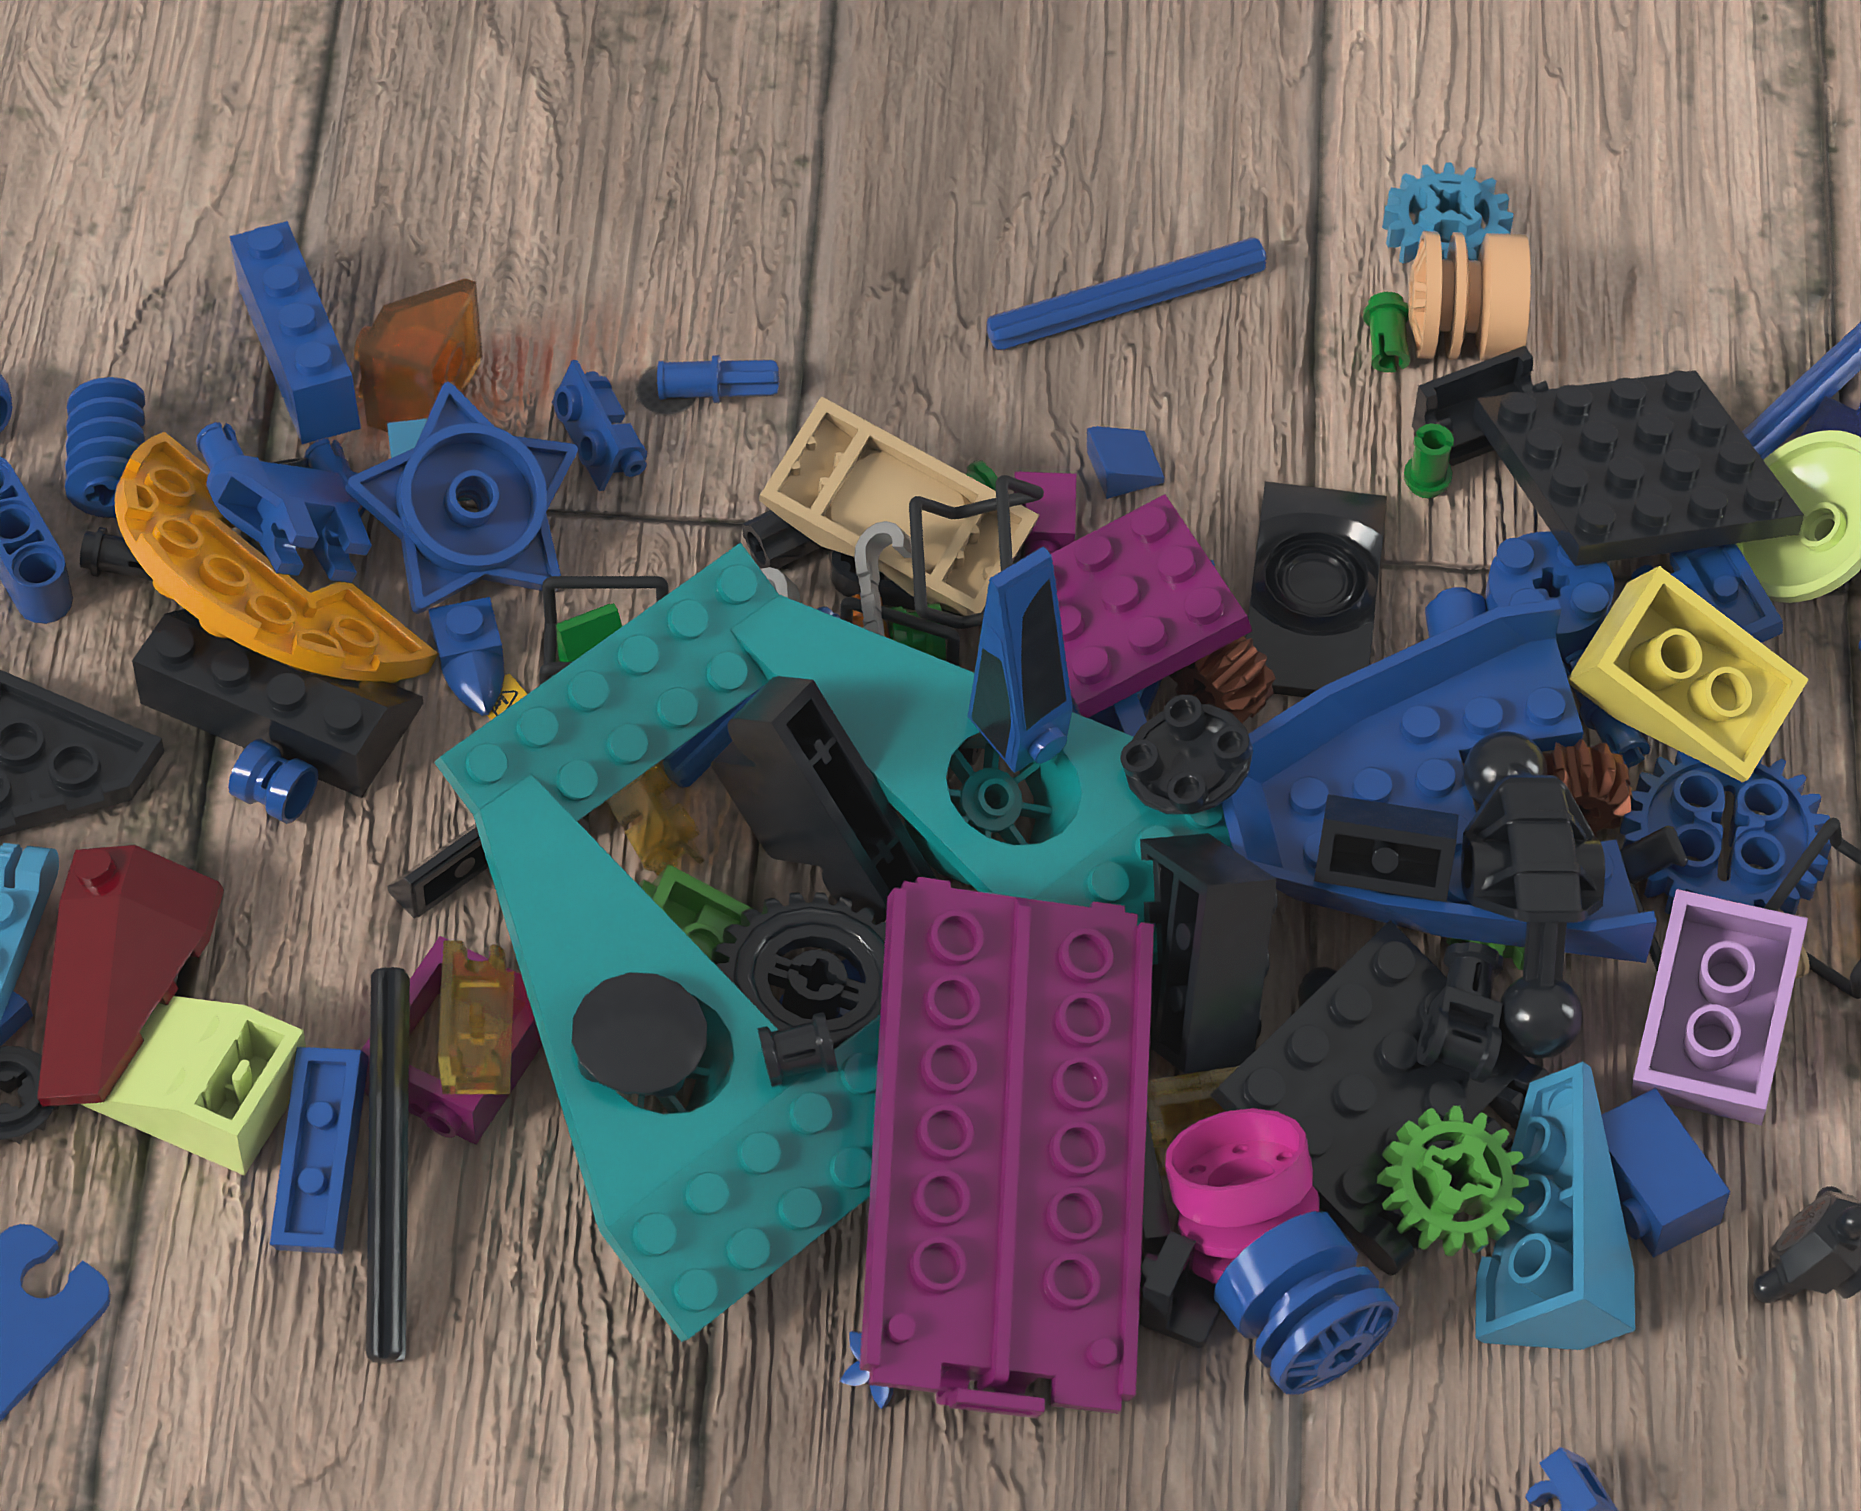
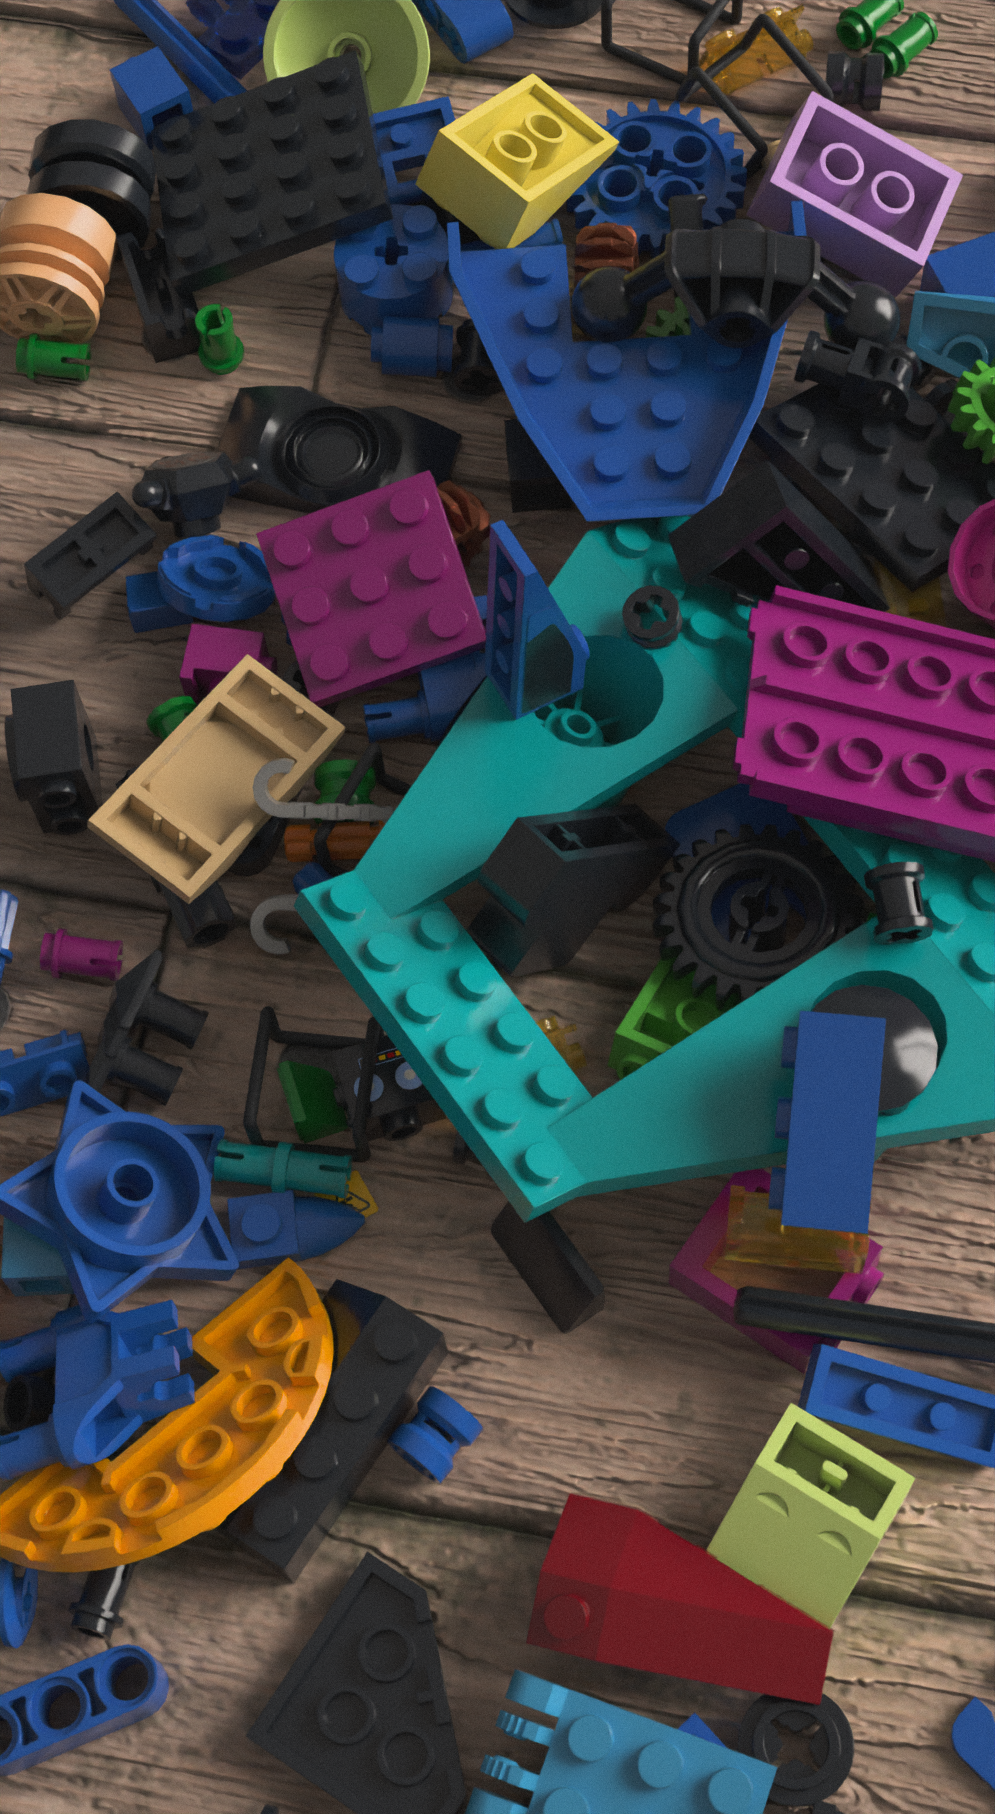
camera: 75 degrees left, 10 degrees up
(522, 636) = (283, 1168): none -> teal pin
(545, 988) = (829, 1121): none -> blue brick
(666, 488) = (135, 1003): none -> black connector
(722, 440) = (80, 955): none -> magenta pin
(914, 382) = (53, 756): none -> black brick
(1025, 494) = (368, 658): black piece -> none
(1113, 830) = (644, 601): none -> black bush
(1135, 474) = (215, 579): none -> blue tile
(1152, 386) = (88, 554): none -> black hinge
(1187, 757) = (594, 533): black dish -> none
(1236, 453) = (194, 489): none -> black rock
(1387, 848) = (711, 387): black brick -> none
(1580, 316) = (98, 168): none -> black wheel
(1737, 362) = (149, 92): none -> blue brick

